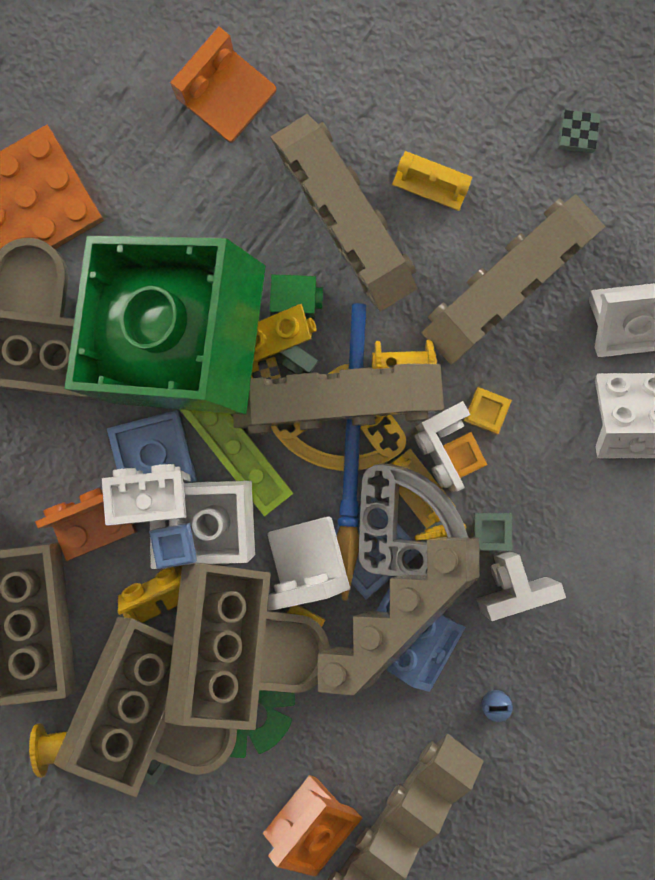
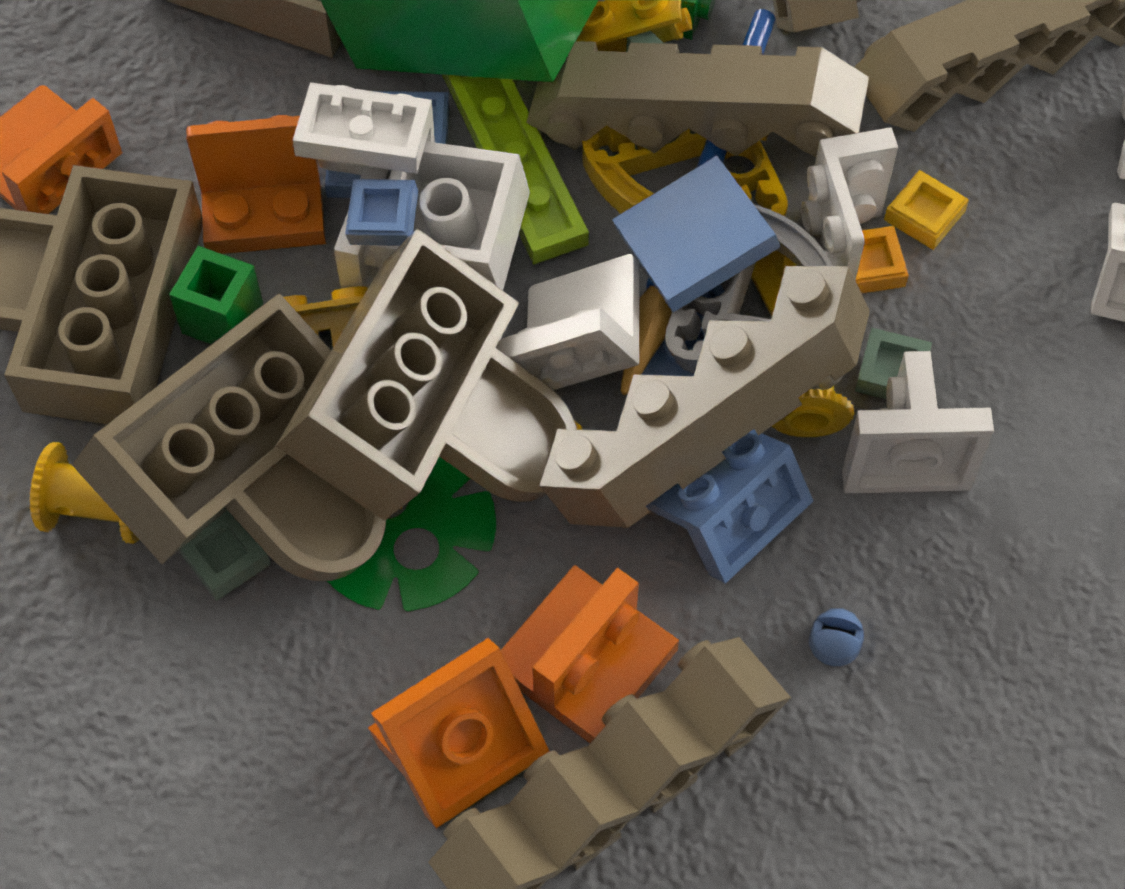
camera: 15 degrees right, 25 degrees down
(90, 608) = (214, 295): none -> green brick
(360, 496) = (696, 233): none -> medium blue tile
(365, 757) = (587, 650): none -> orange bracket

